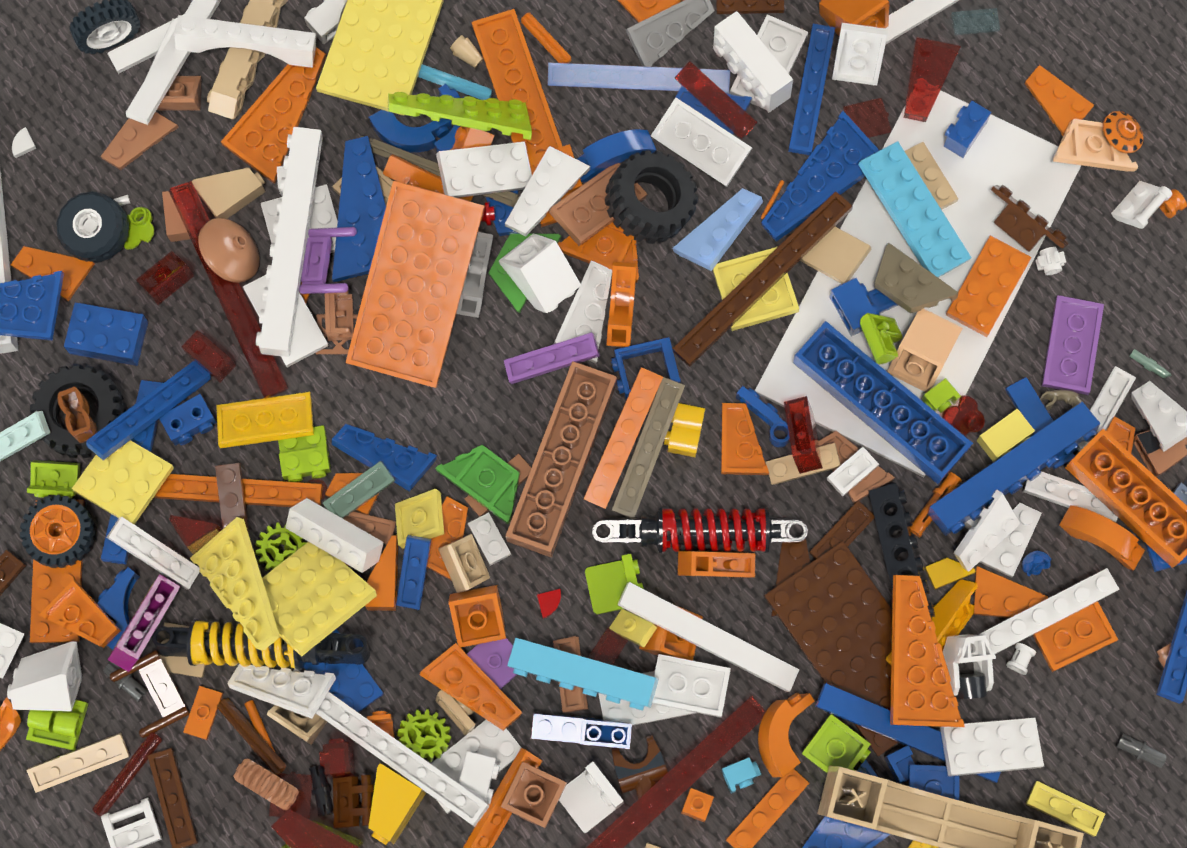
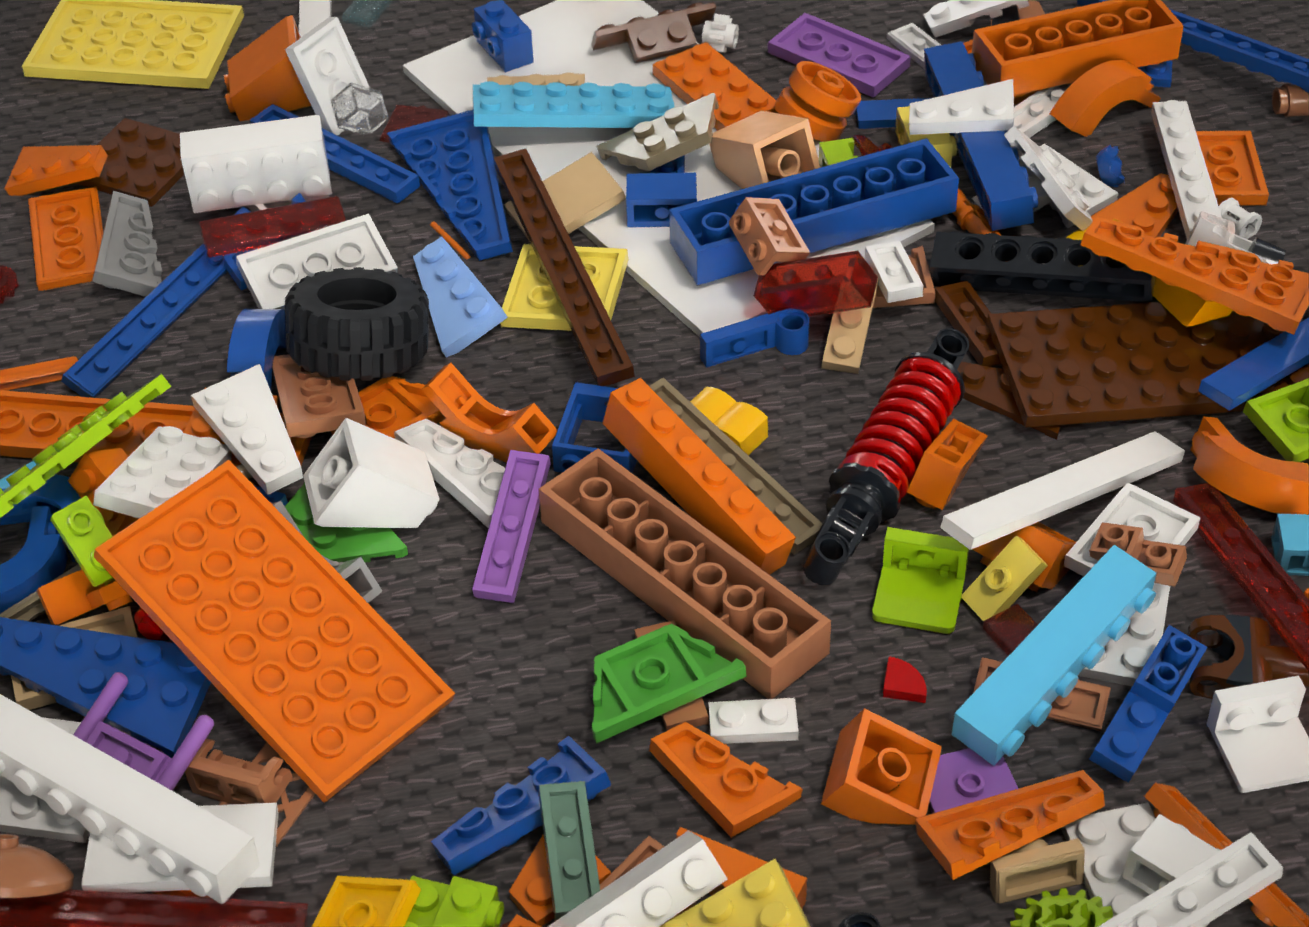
camera: 65 degrees left, 30 degrees down
(413, 572) = (755, 824): blue tile -> none
(417, 164) = (82, 531): none -> lime bracket
(419, 517) = (668, 786): light yellow plate -> none
(464, 563) = (783, 758): tan slope -> none
(533, 795) = (1241, 797): nougat slope -> none
(671, 692) = (1161, 557): none -> nougat slope
(739, 444) = (783, 383): orange wing -> none
(823, 390) = (767, 233): none -> nougat bracket
(849, 84) = (359, 109): none -> clear brick
(881, 335) = (722, 173): lime brick -> none
(928, 73) = (406, 53): clear red wing -> none
(995, 357) = (821, 97): none -> orange wheel
(1016, 457) = (965, 111): none -> white wing
(1070, 397) = (902, 79): dark tan piece -> none
(1149, 364) = (900, 11): sand green piece -> none

